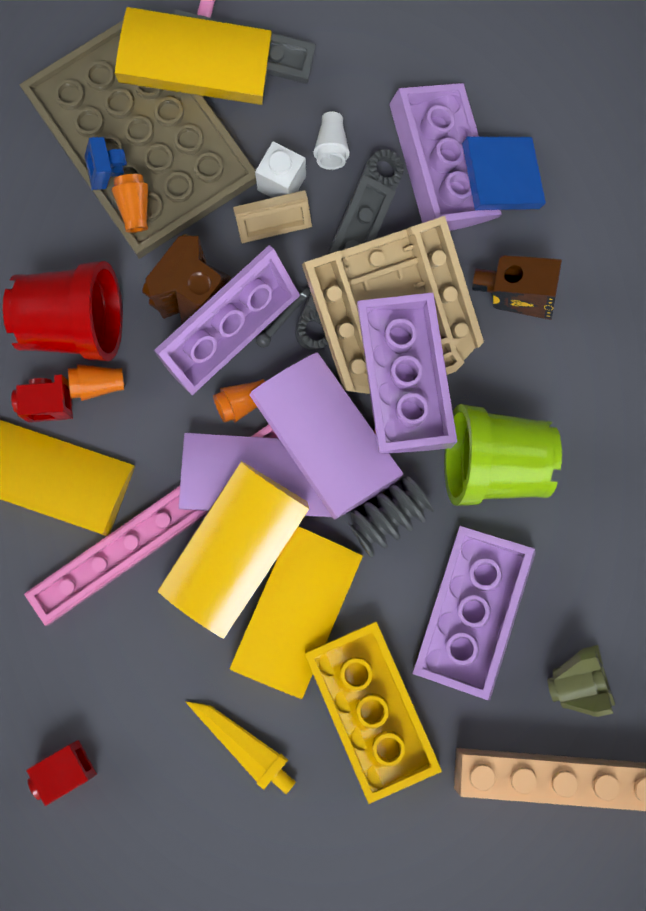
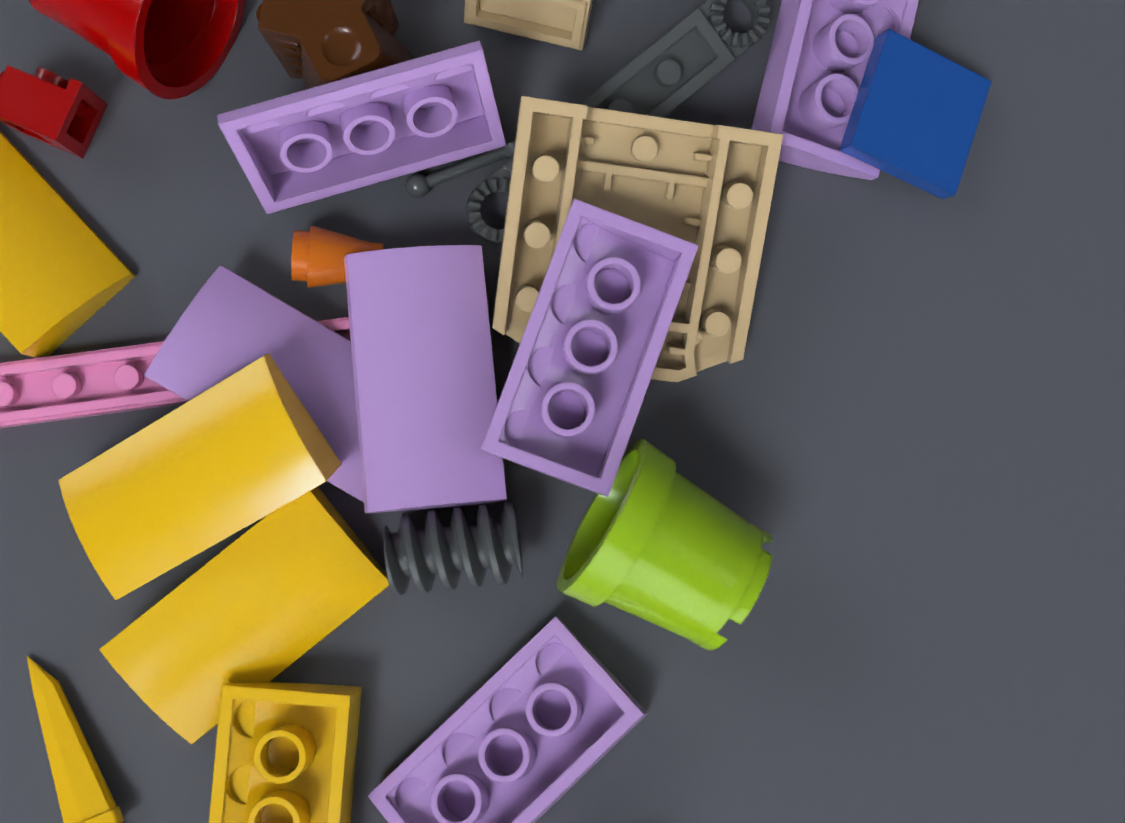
camera: 30 degrees right, 5 degrees up
(94, 381) = (132, 118): orange cone -> none
(521, 284) = (869, 306): reddish brown torso -> none

